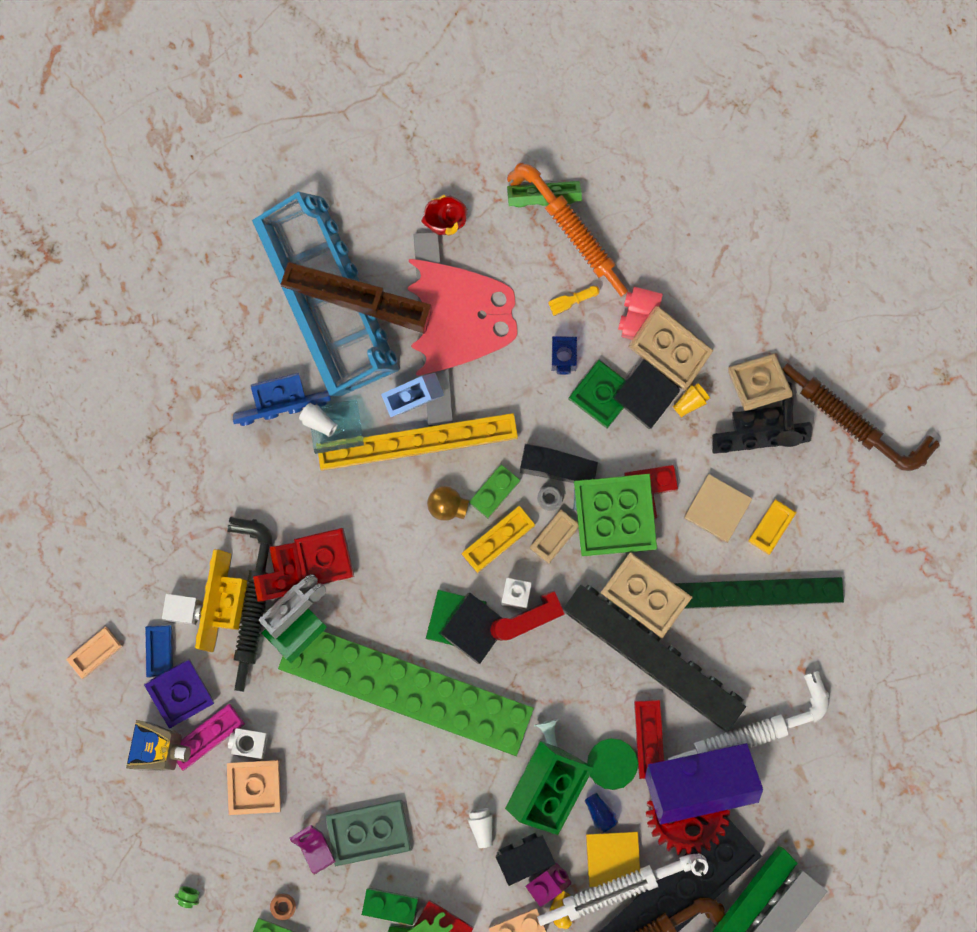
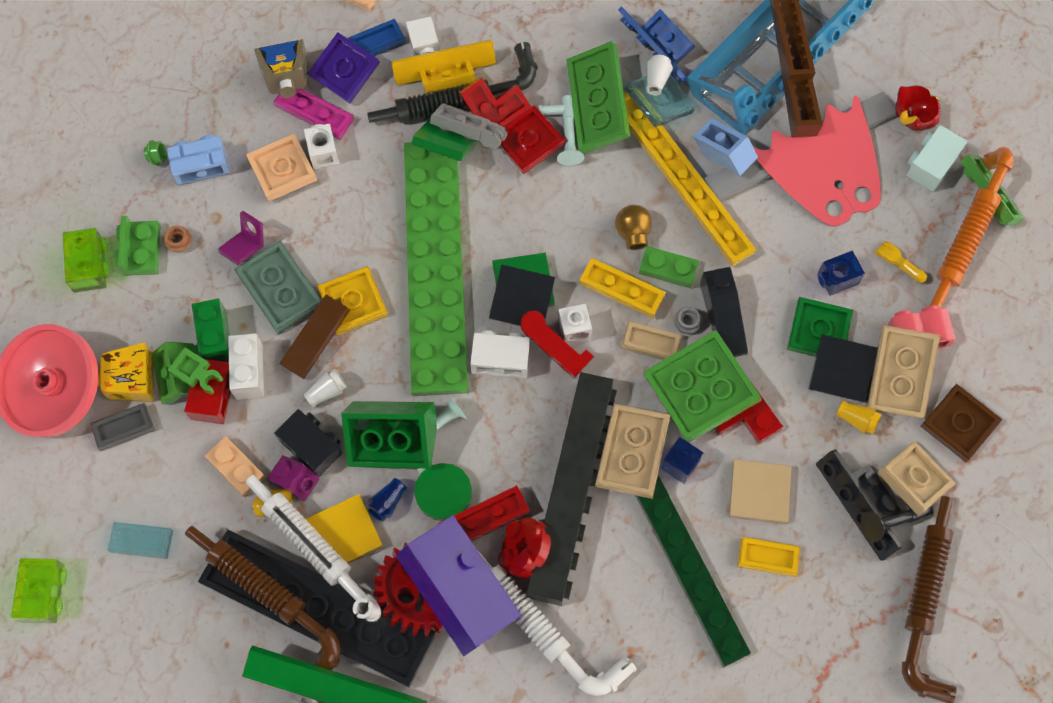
camera: 65 degrees right, 10 degrees down
(213, 860) = (198, 159): none -> light blue brick
(307, 511) = (570, 155): none -> light aqua piece
(313, 480) = (598, 98): none -> bright green plate
(408, 773) = (359, 294): none -> yellow tile
(431, 819) = (314, 336): none -> reddish brown tile
(434, 888) = (246, 366): none -> white brick
(495, 222) = (936, 157): none -> light aqua brick
(515, 667) = (500, 354): none -> white brick
(669, 559) = (682, 460): none -> clear blue brick
(695, 729) = (513, 555): none -> red plate
(728, 322) = (961, 423): none -> reddish brown tile

